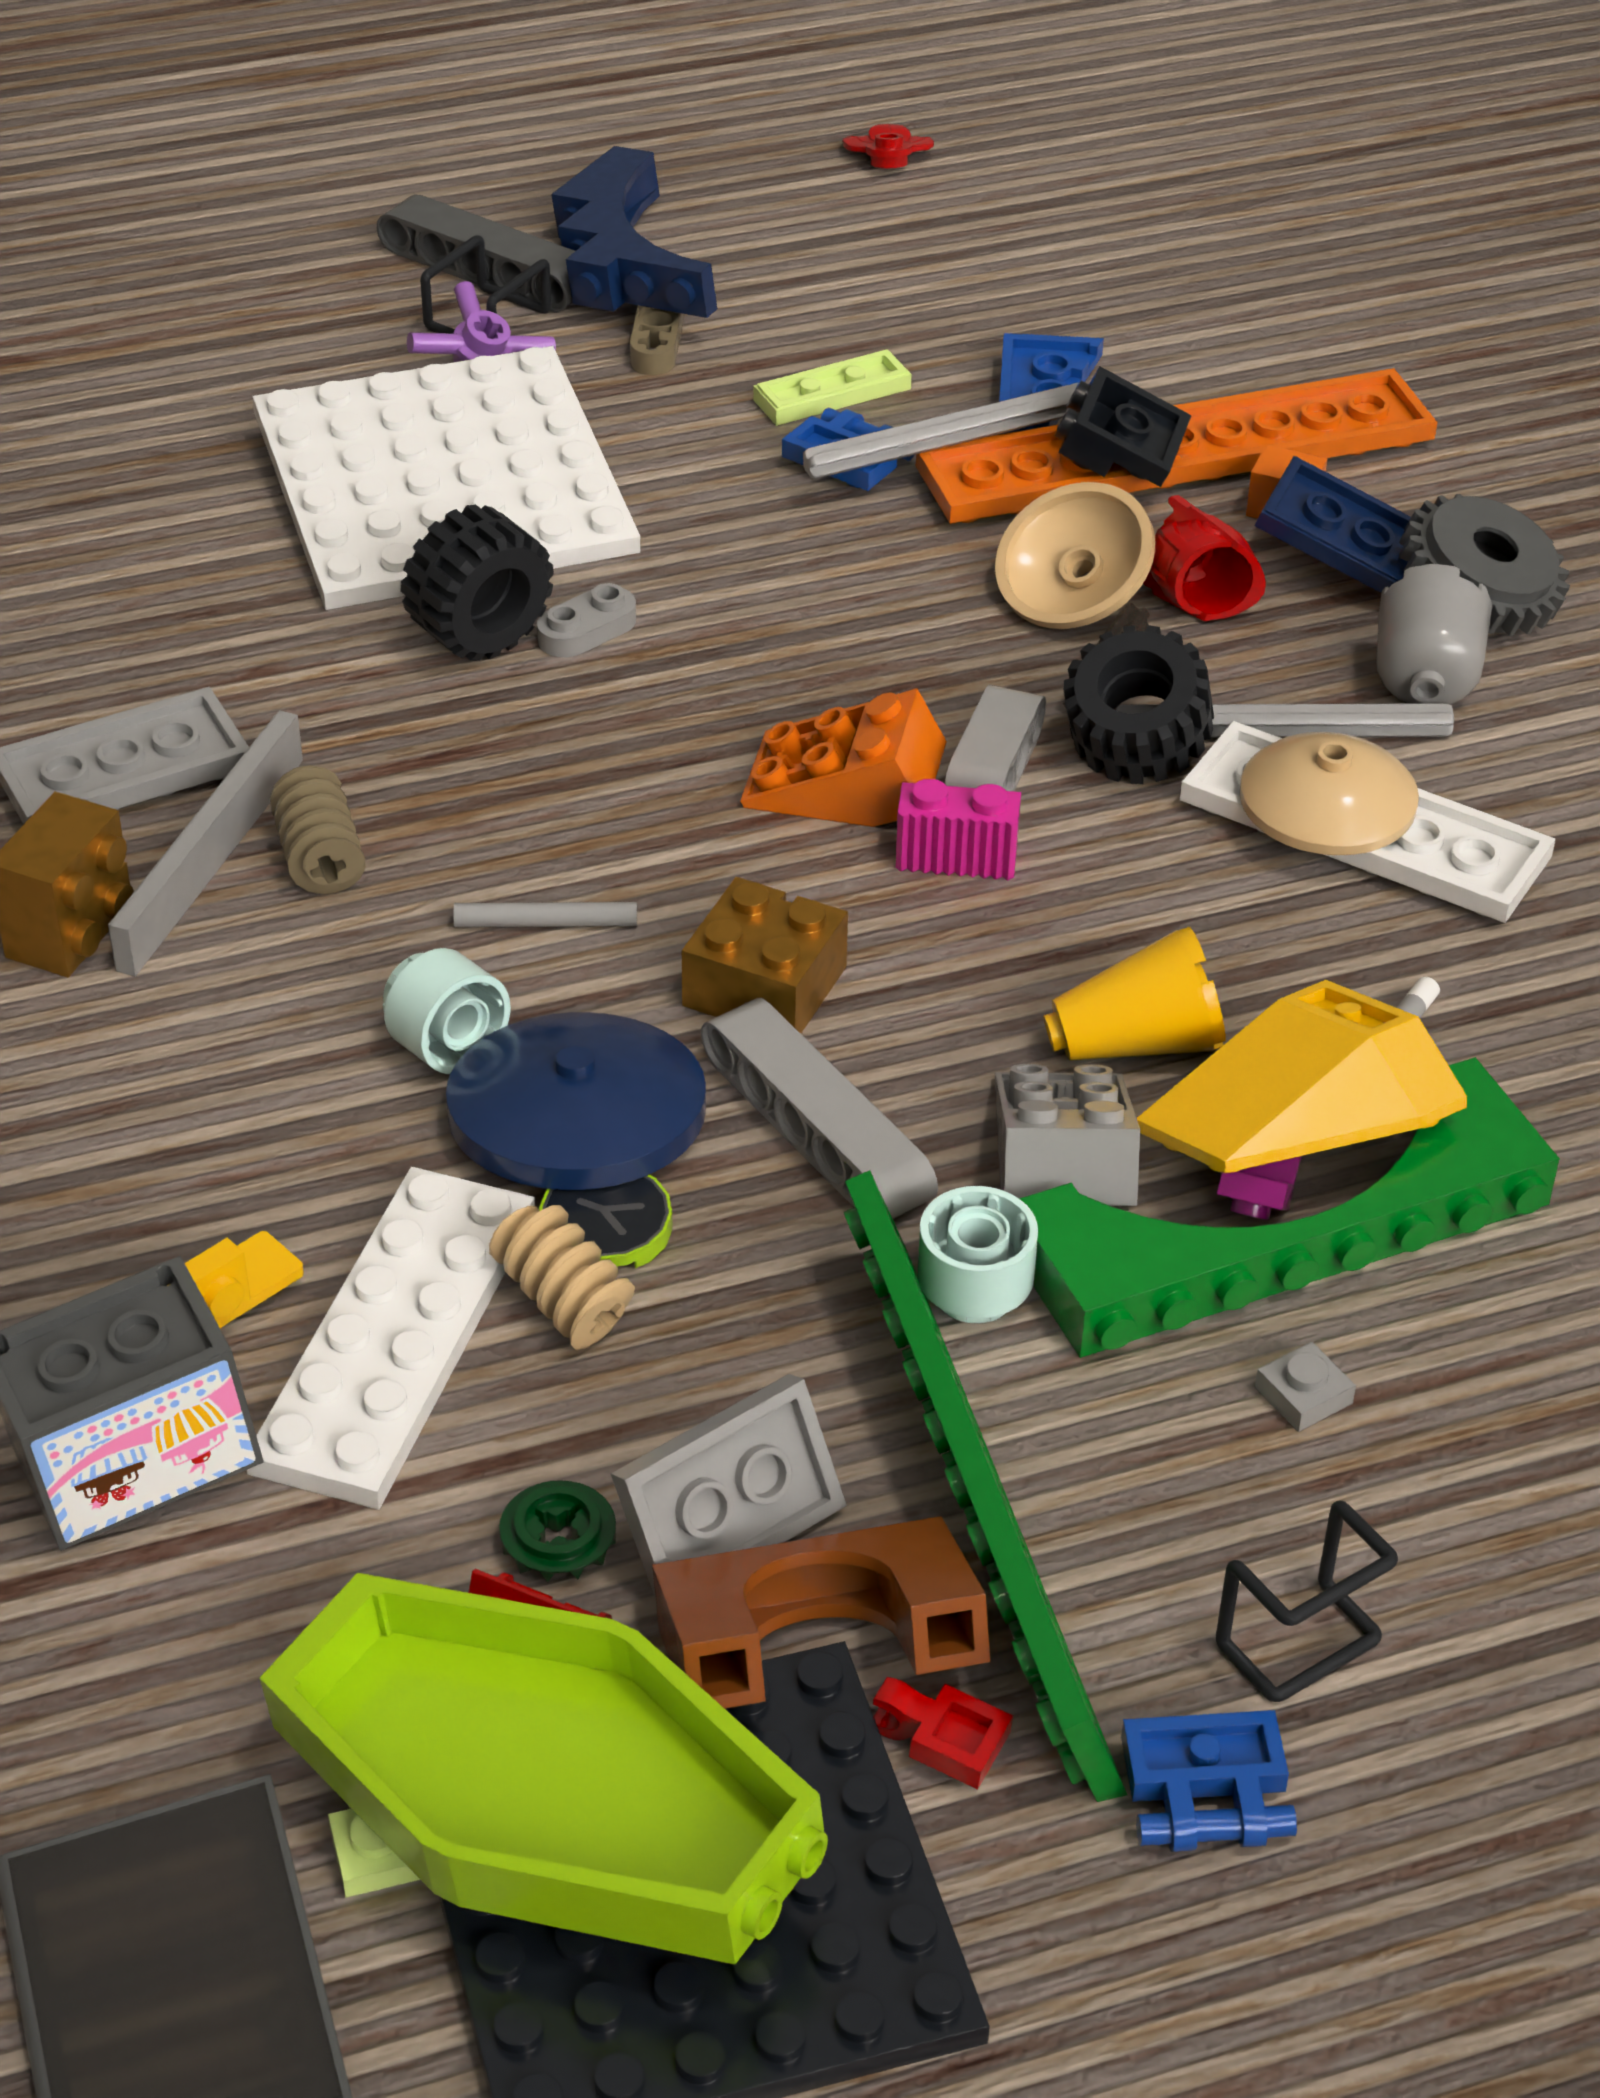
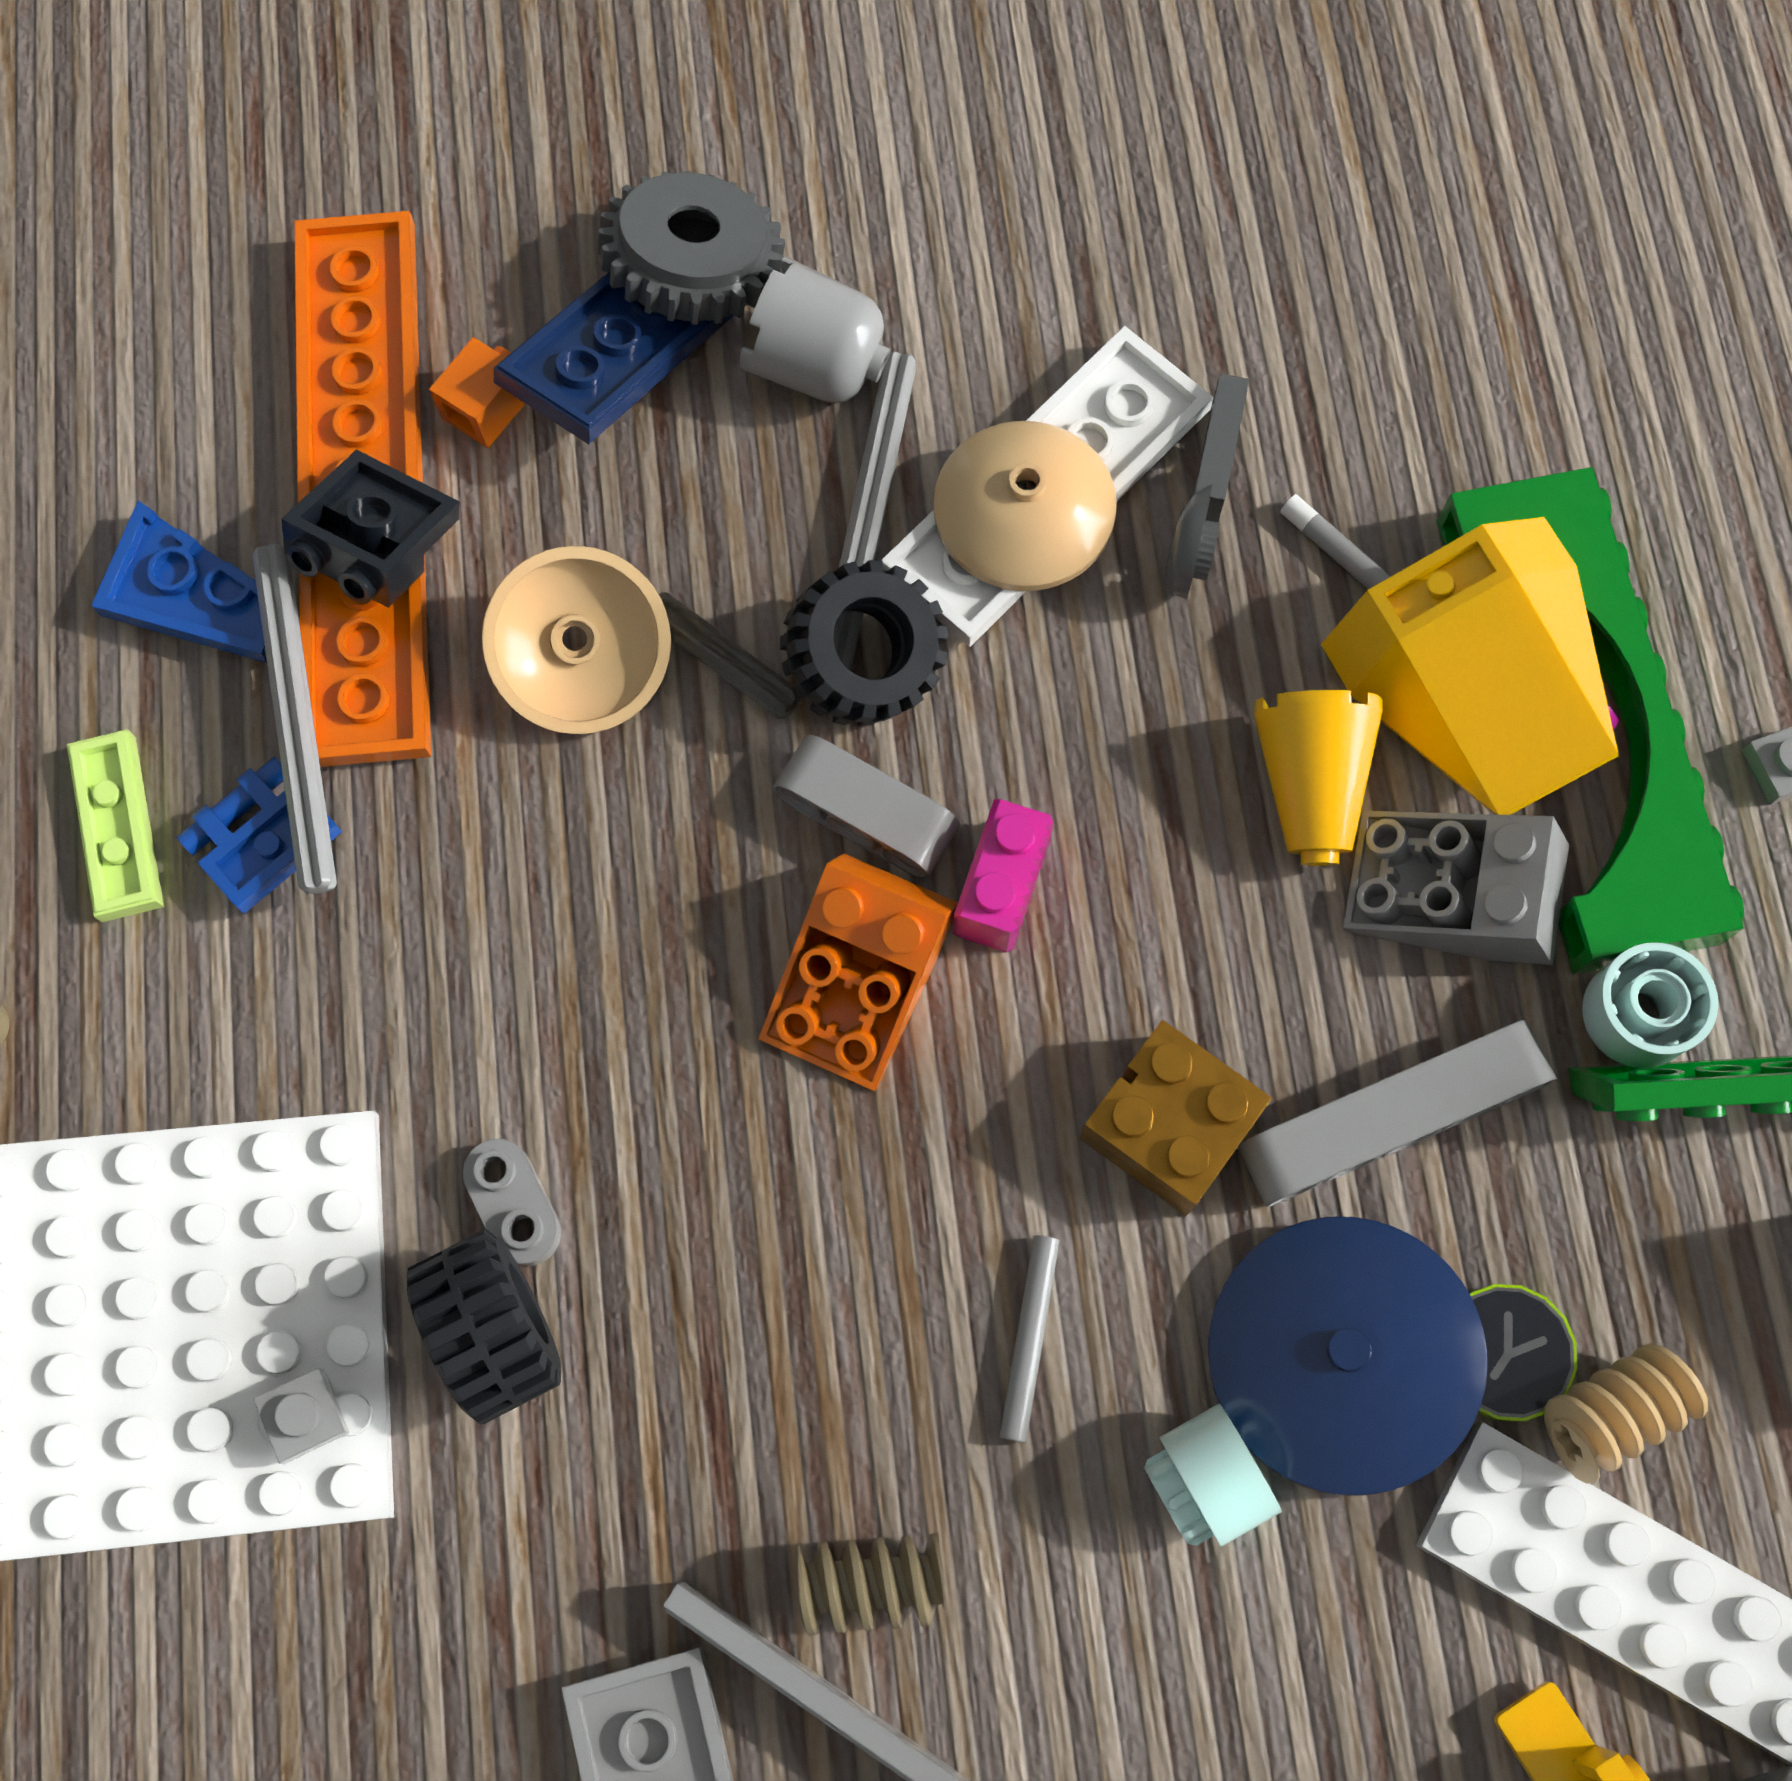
camera: 75 degrees left, 30 degrees up
(390, 522) = (301, 1416): none -> light grey plate
(1203, 565) = (619, 509): red helmet -> none
(1403, 908) = (1198, 523): none -> dark grey beam

